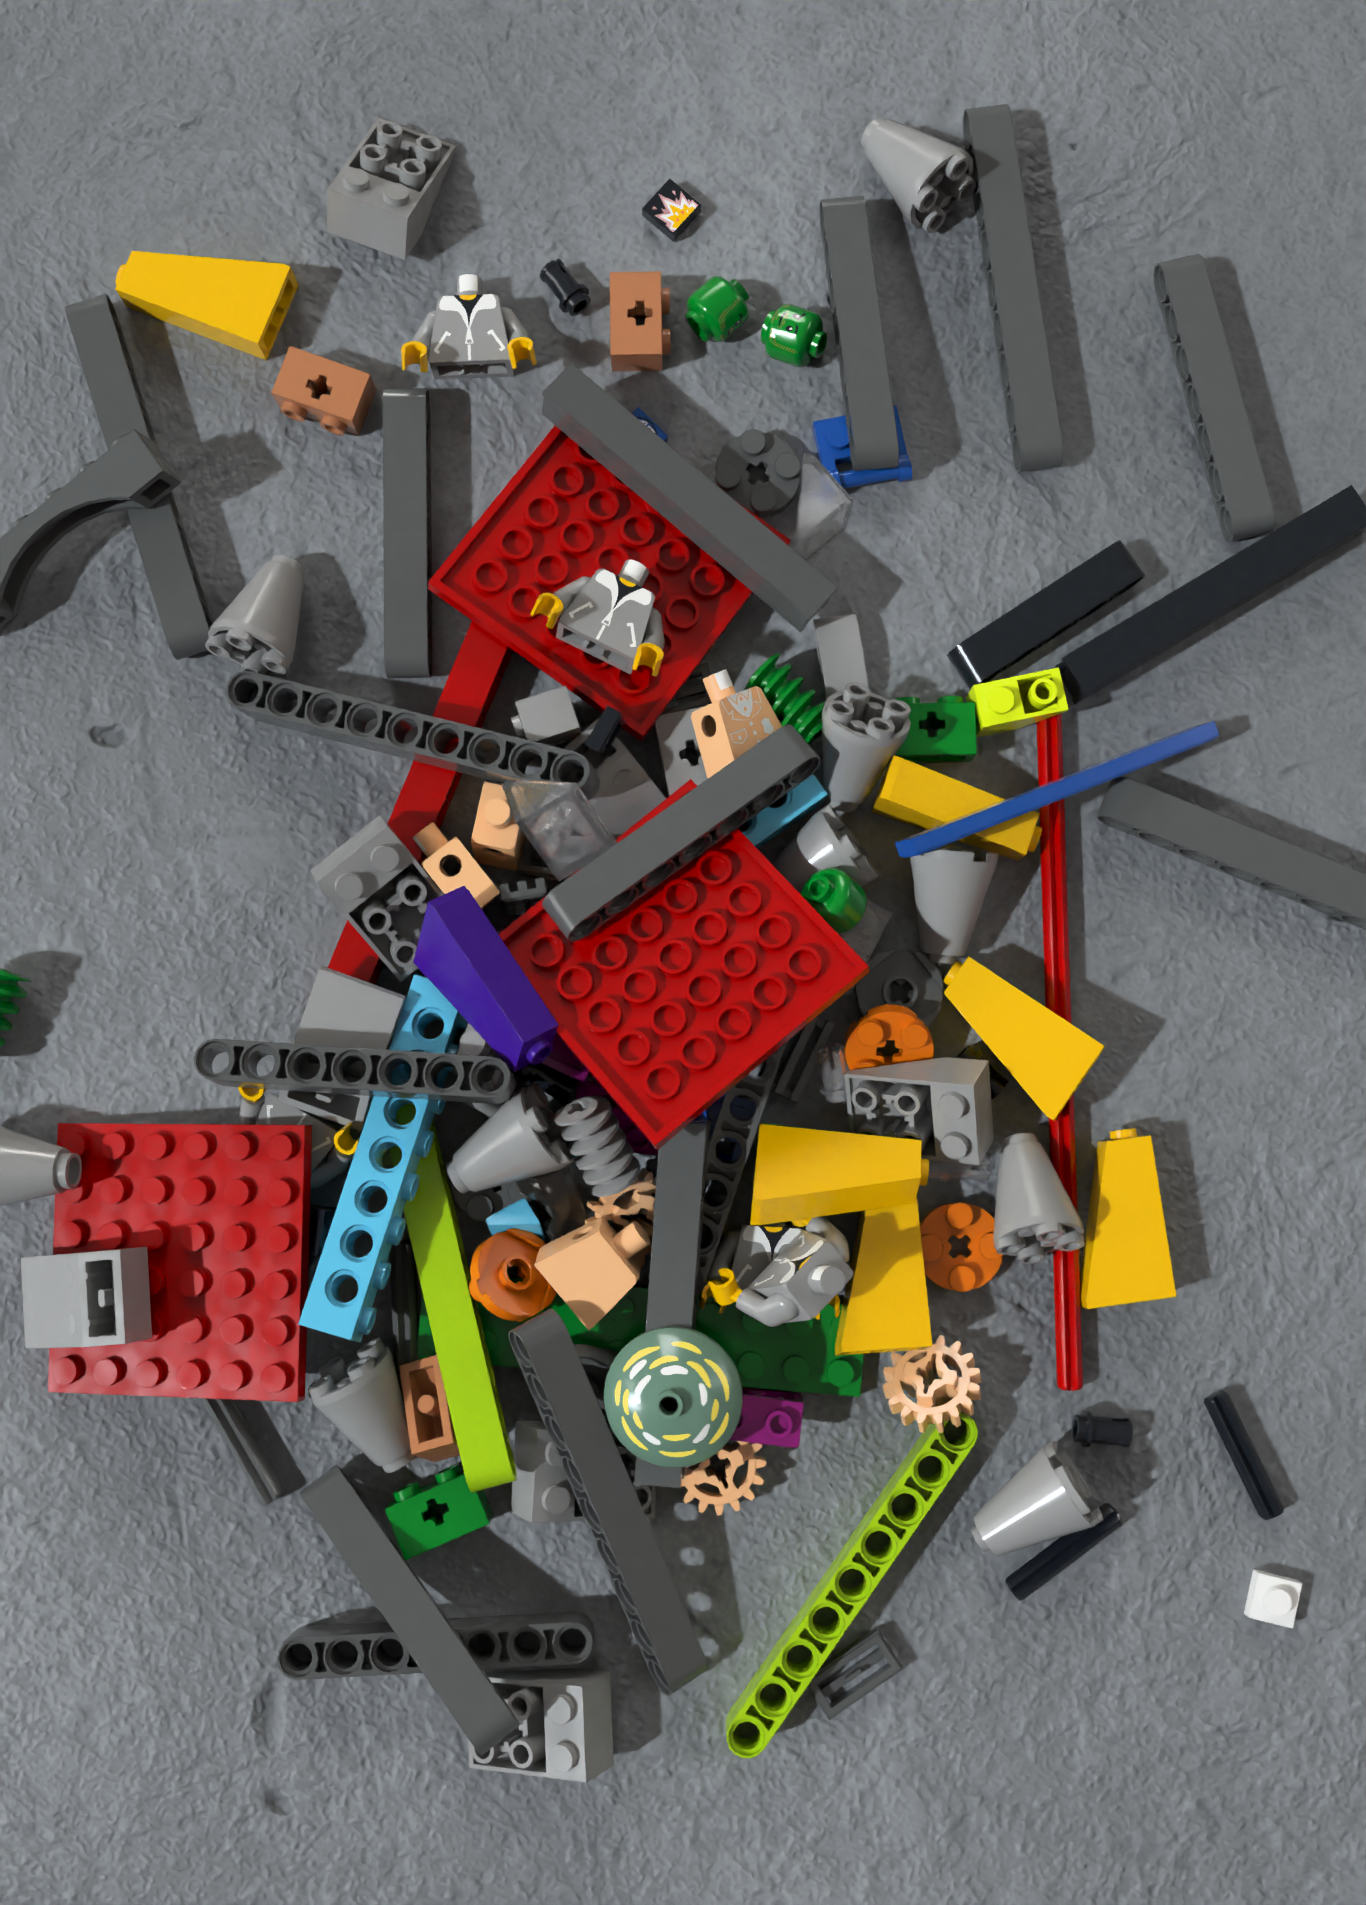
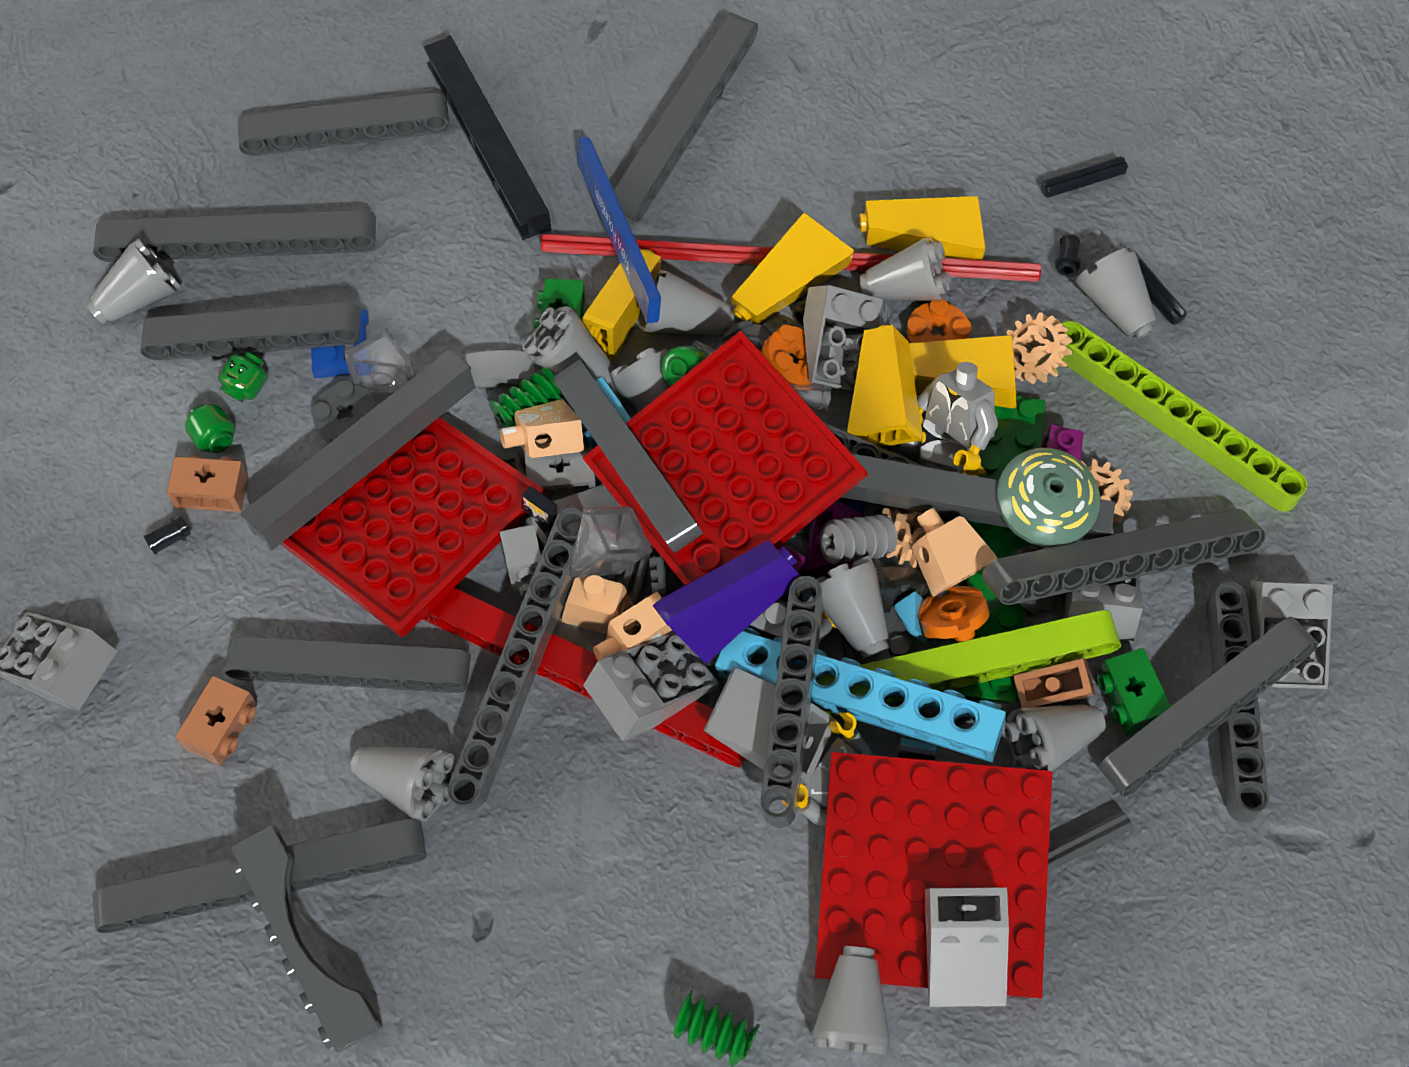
camera: 85 degrees left, 20 degrees down
(213, 297) = (114, 809): yellow slope -> none
(469, 336) = (194, 600): light grey torso -> none
(608, 617) = (452, 496): light grey torso -> none
(671, 210) = (121, 457): black tile -> none
(864, 1687) = (1224, 410): dark grey tile -> none
(1017, 701) = (546, 252): neon yellow slope -> none
(1046, 615) = (486, 237): black beam -> none
(1273, 1598) = (1179, 170): white plate -> none

